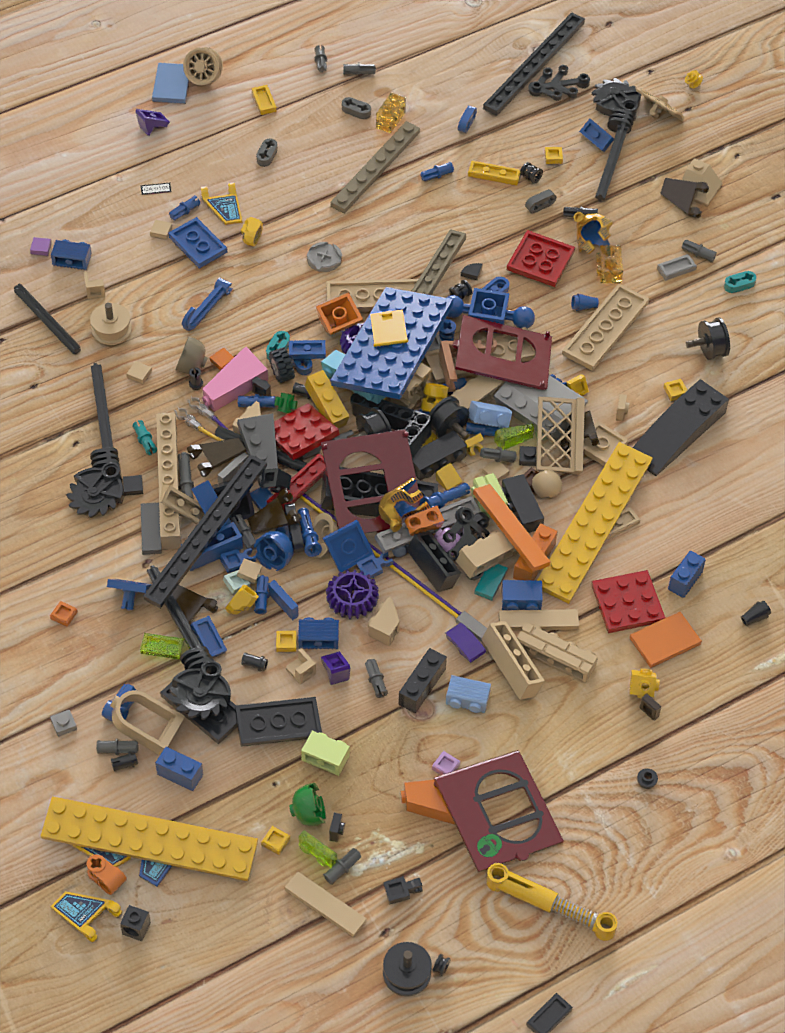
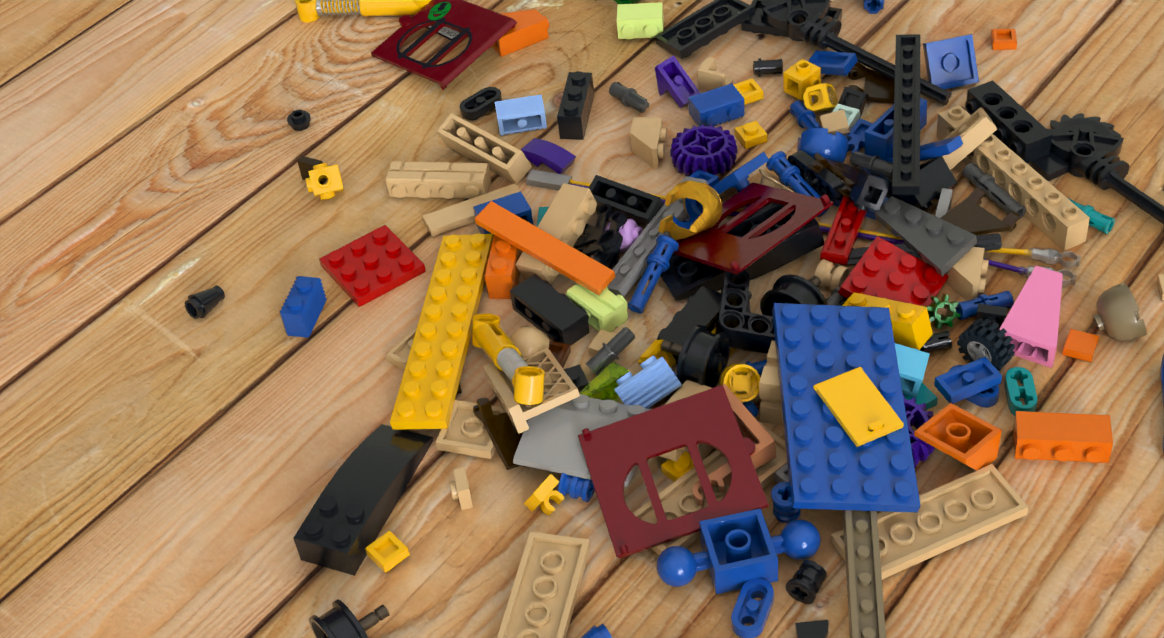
camera: 165 degrees right, 10 degrees down
(137, 503) = (1013, 123): none -> black brick
(162, 646) = (877, 43): clear neon green plate -> none
(195, 379) = (1087, 299): black pin -> none
(219, 593) = (853, 99): none -> black tile
(242, 626) = (800, 77): none -> yellow brick
(279, 309) = (1062, 436): none -> orange brick
(283, 600) = (778, 119): blue tile -> none
(307, 603) = (750, 134): none -> yellow plate
(324, 257) = (1070, 564): light grey tile -> none
(424, 521) = (649, 214): orange leg -> none
(445, 763) = (516, 64): lavender tile -> none
(448, 477) = (664, 312): yellow slope -> none
(492, 724) = (480, 103): none -> black plate
(569, 454) = (526, 380): none -> yellow piece
(665, 639) = (312, 241): orange tile -> none

